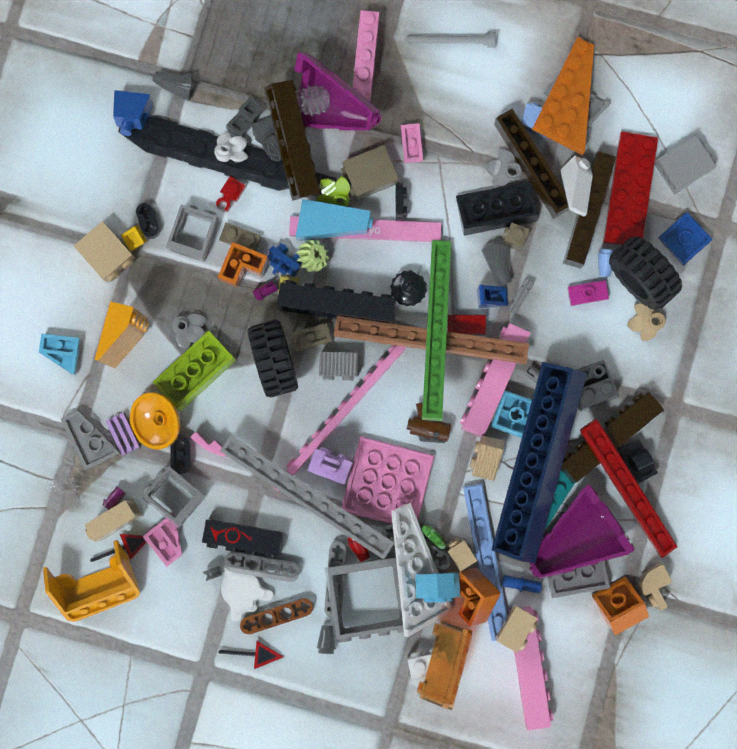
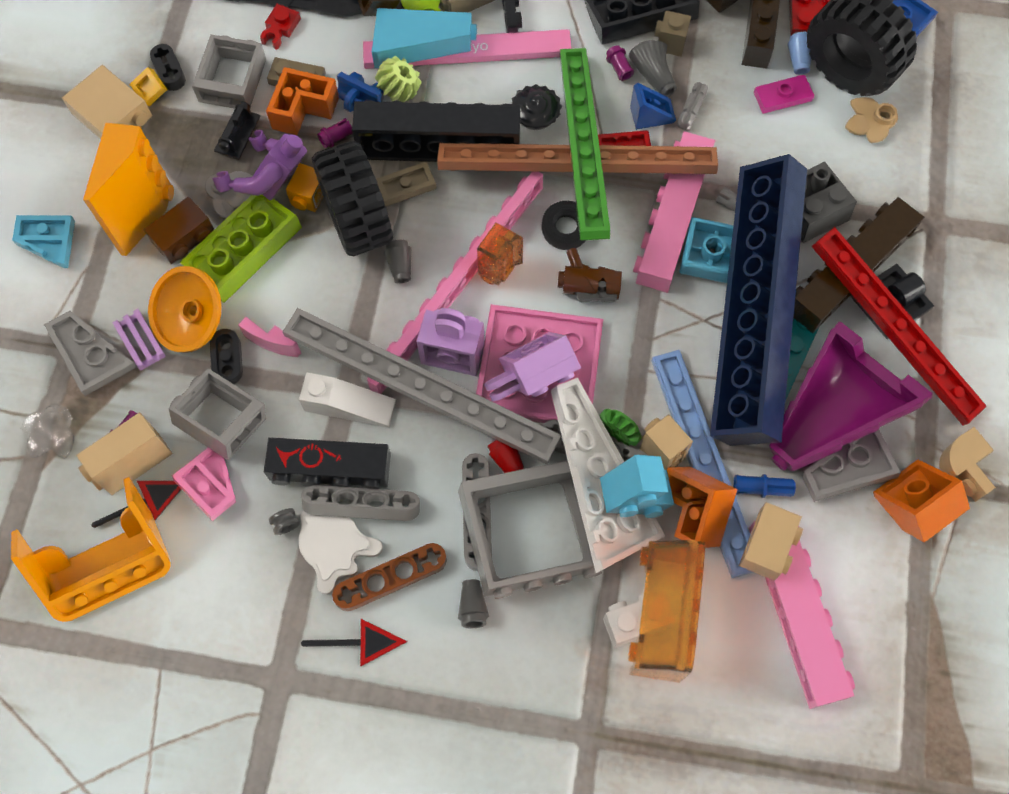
camera: 10 degrees left, 15 degrees down
(153, 357) = (179, 230): none -> reddish brown brick
(195, 281) = (237, 131): none -> black hinge
(221, 322) = (274, 170): none -> medium lavender torso
(239, 334) = (304, 189): none -> light orange brick
(258, 496) = (345, 400): none -> white slope
(301, 397) = (399, 260): none -> dark grey cone
(338, 365) = (448, 213): light grey brick -> none
(368, 405) = (499, 254): none -> clear orange window
(382, 494) = (535, 367): none -> lavender brick
(406, 381) = (550, 232): none -> black tyre
(474, 256) = (617, 58): none -> magenta pin
(487, 458) = (682, 307): tan brick -> none

